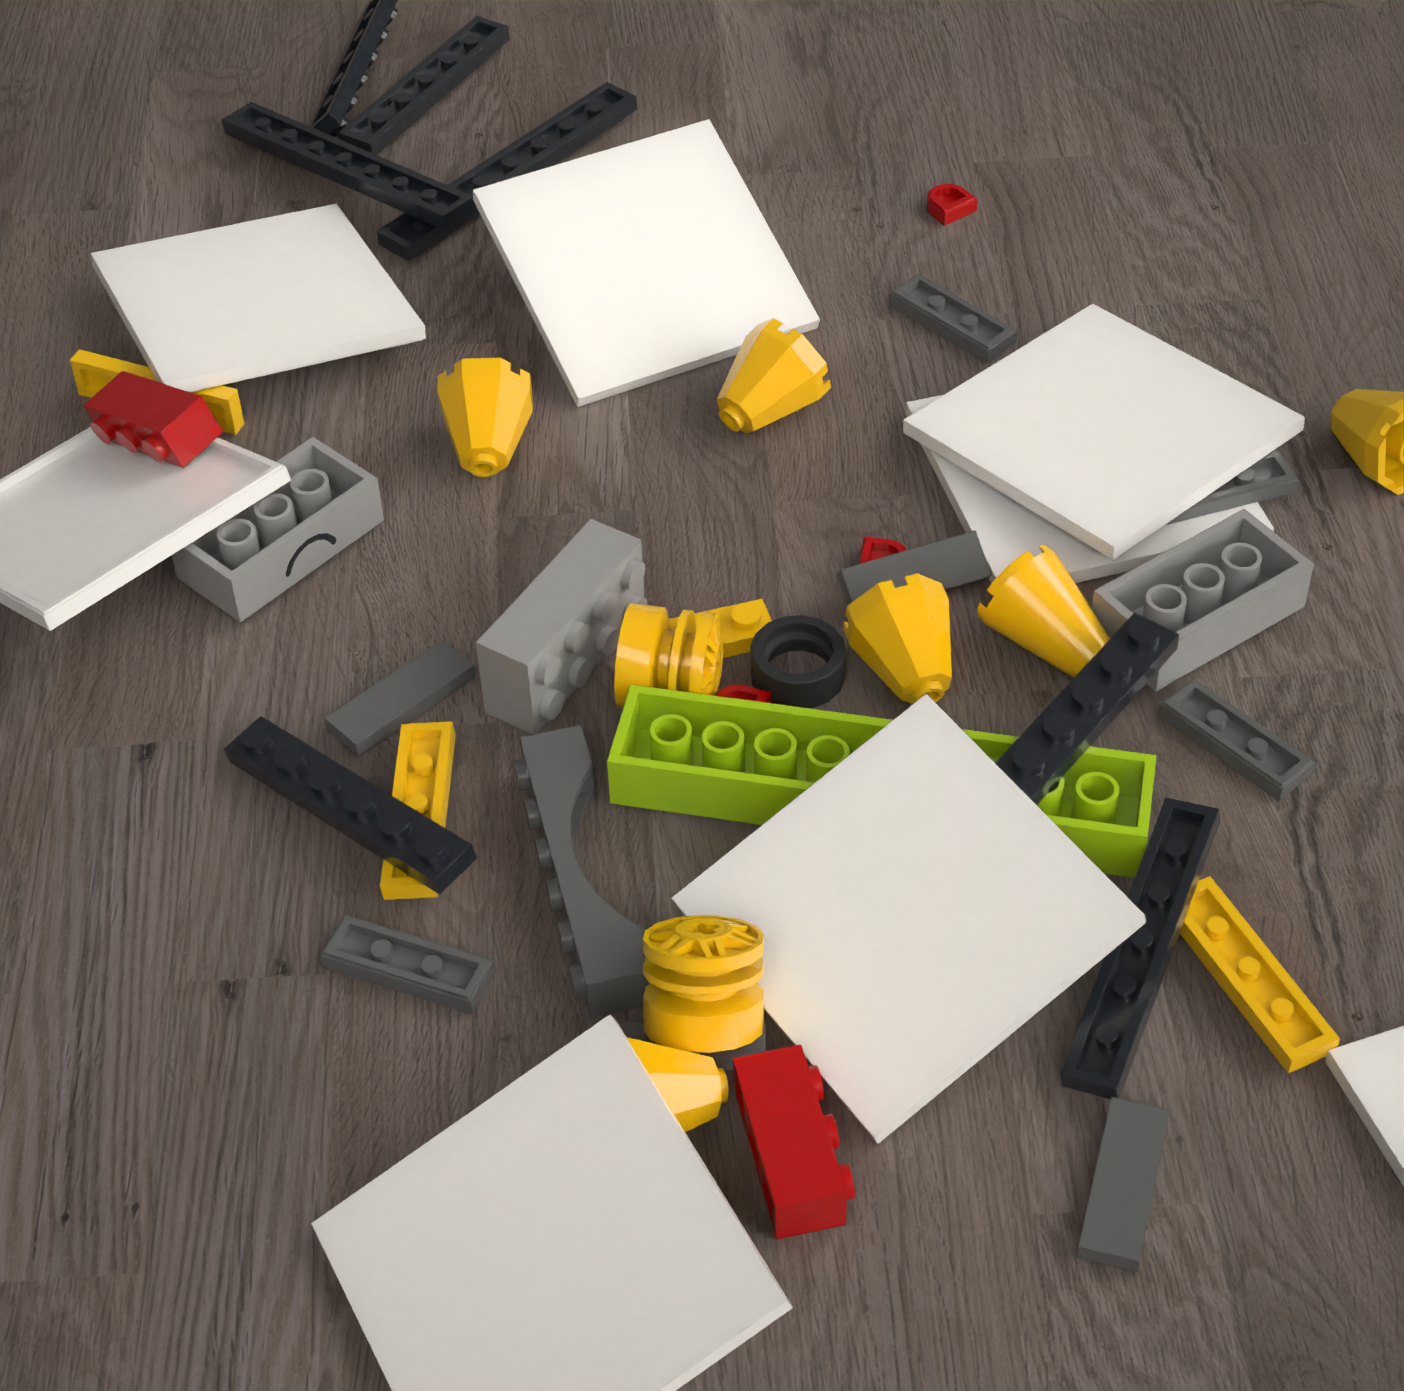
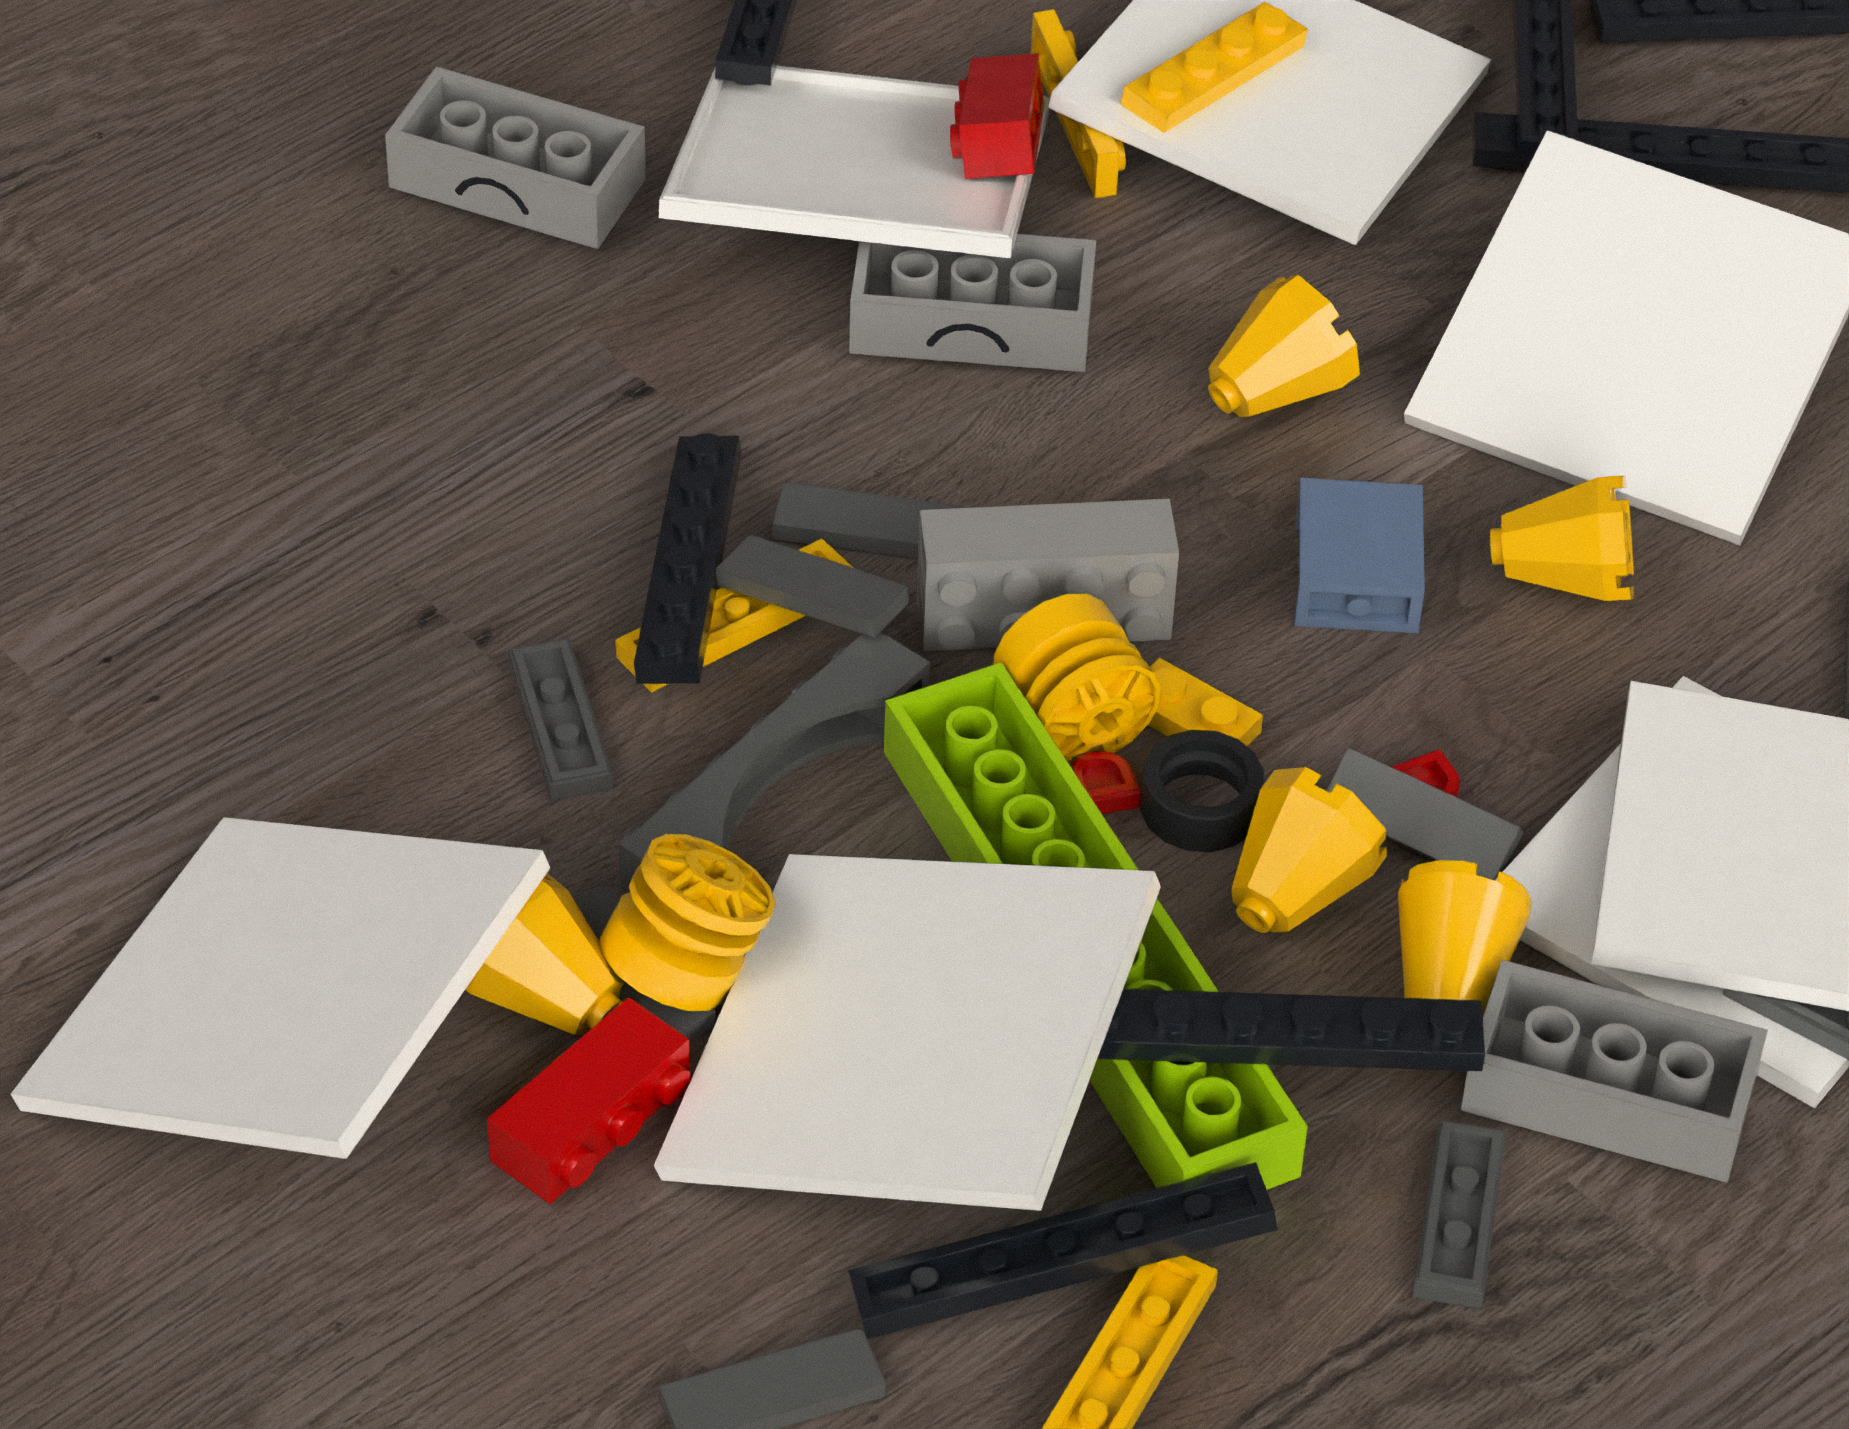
camera: 50 degrees right, 0 degrees up
(225, 305) = (1214, 66): none -> yellow plate
(453, 747) = (812, 586): none -> dark grey tile
(683, 474) = (1360, 555): none -> sand blue panel

